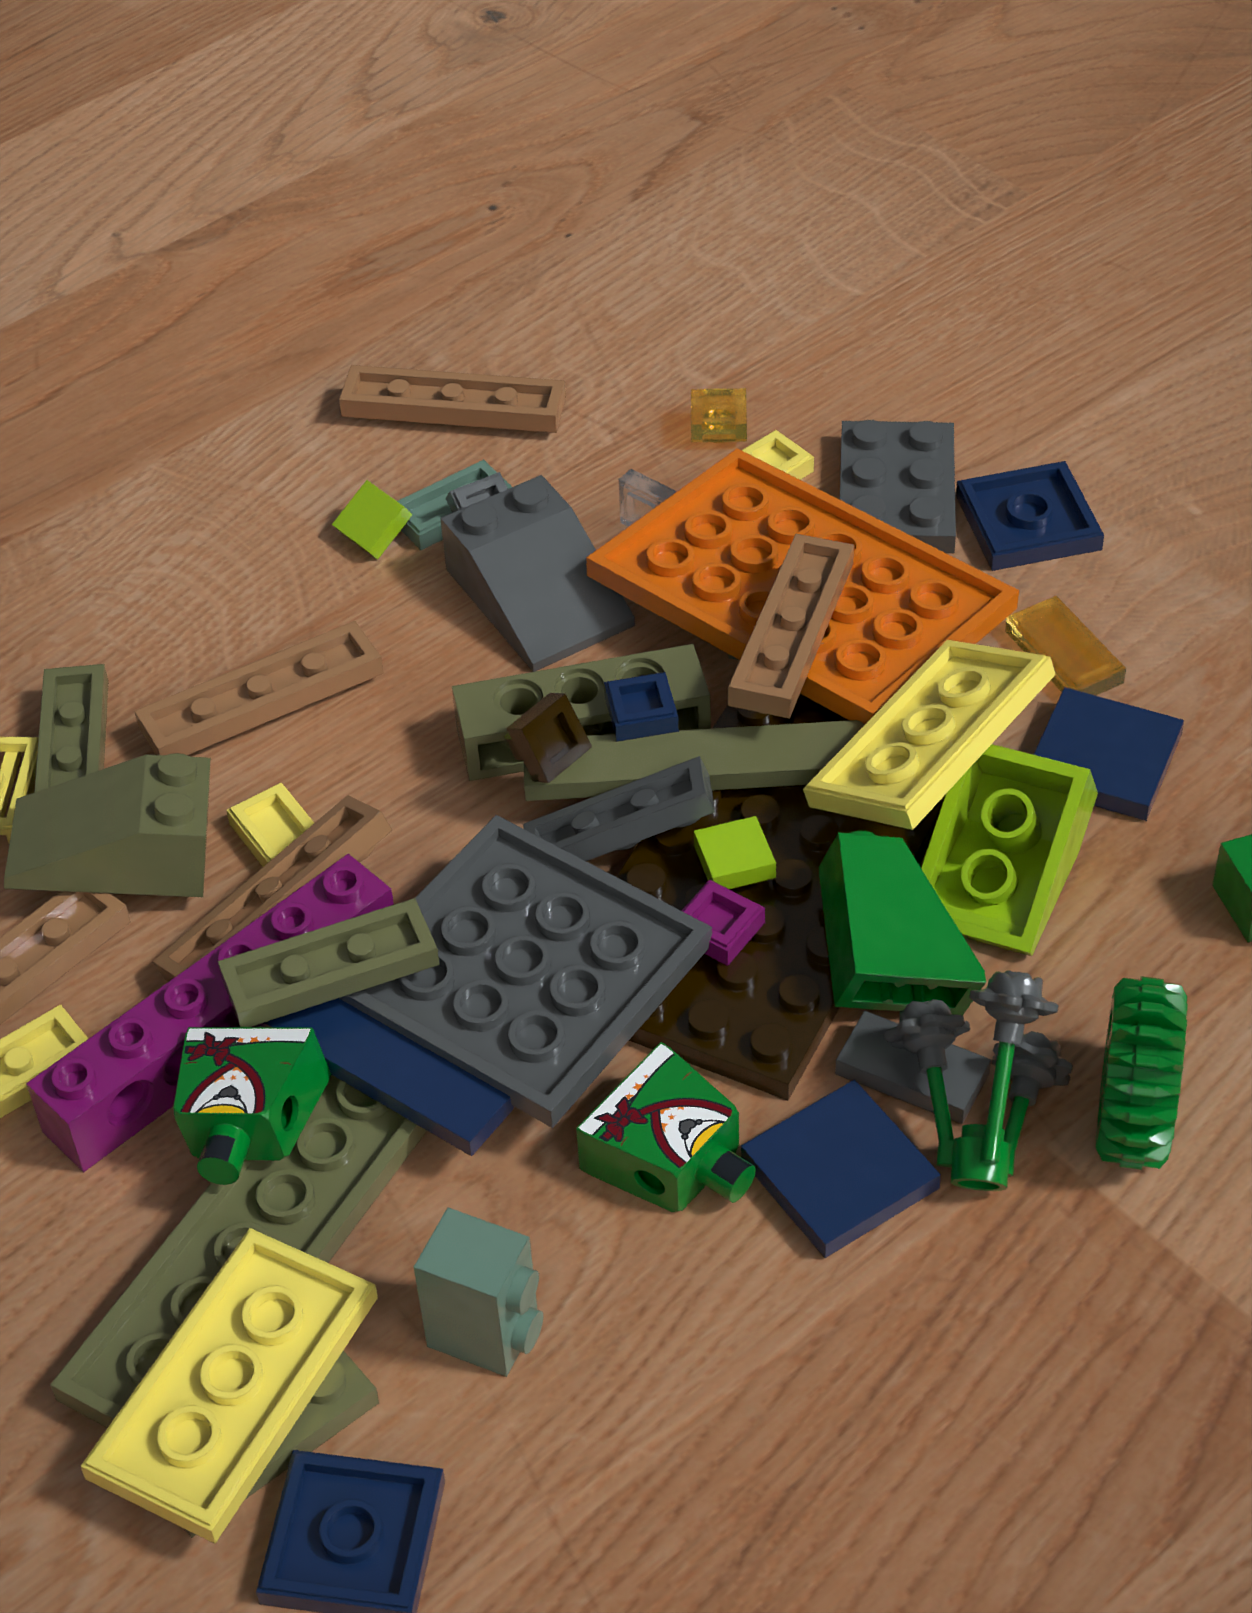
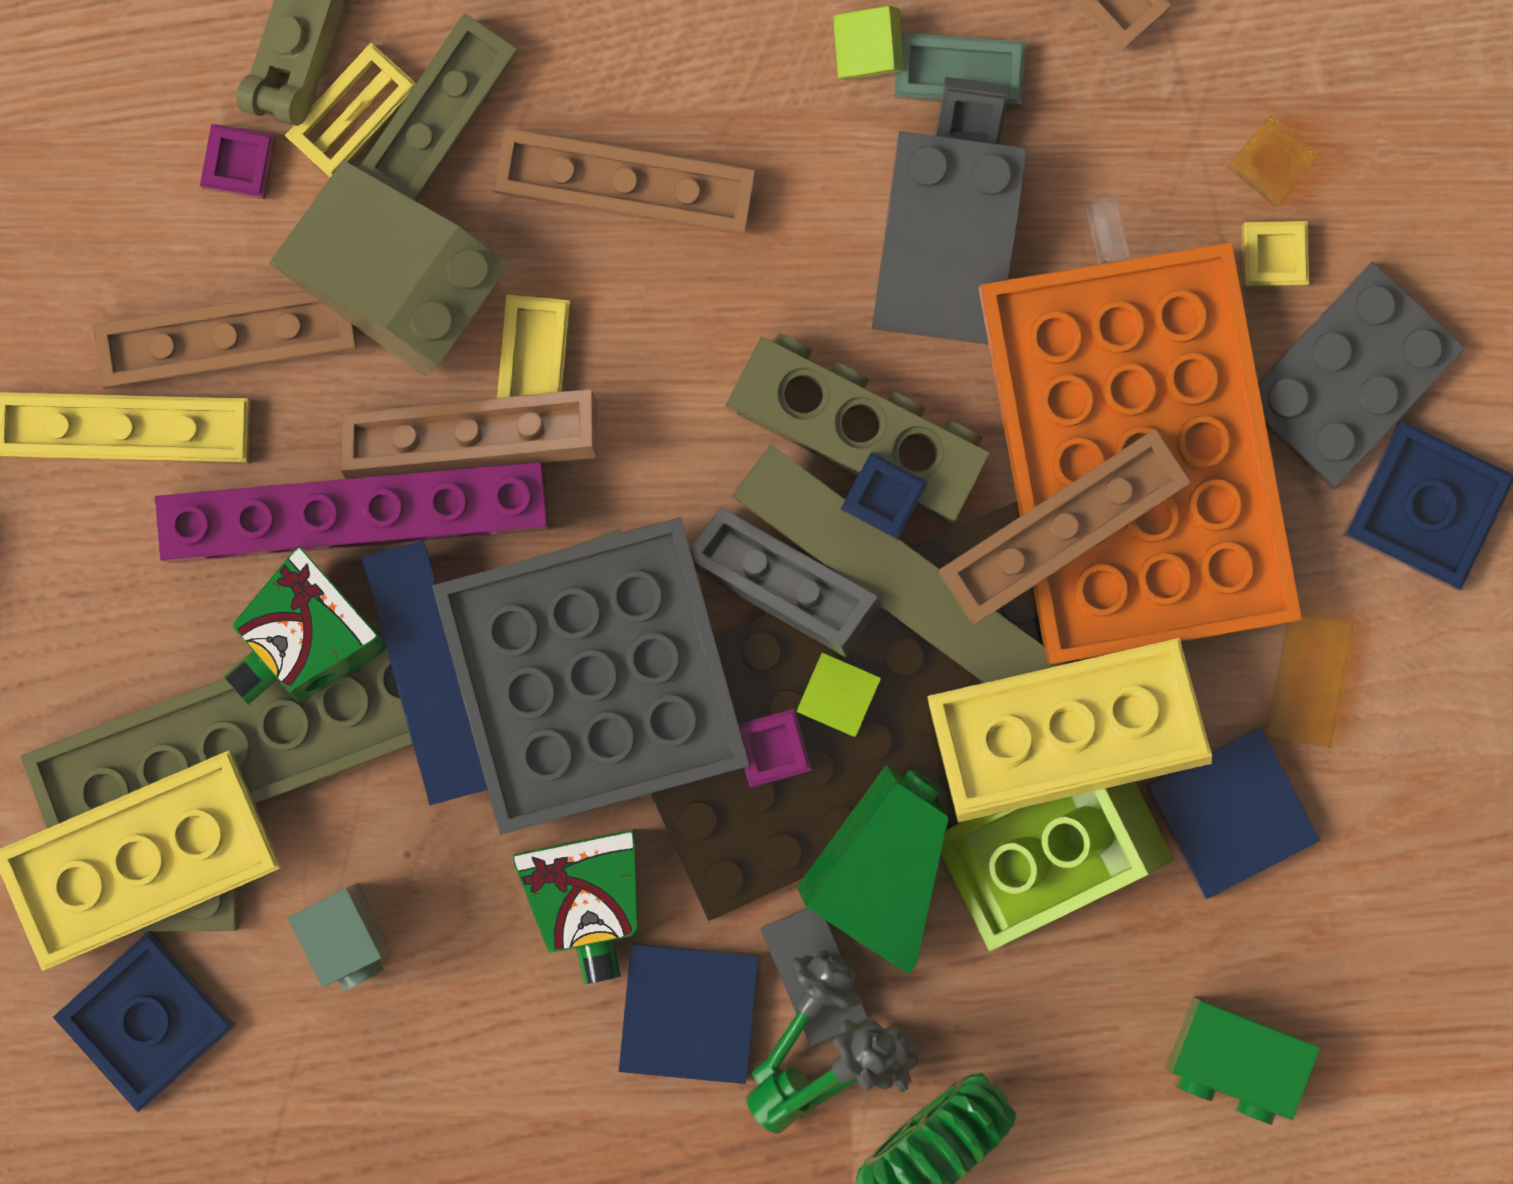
camera: 30 degrees right, 40 degrees up
(328, 963) = (434, 581): olive plate -> none
(548, 737) = (773, 482): dark brown tile -> none

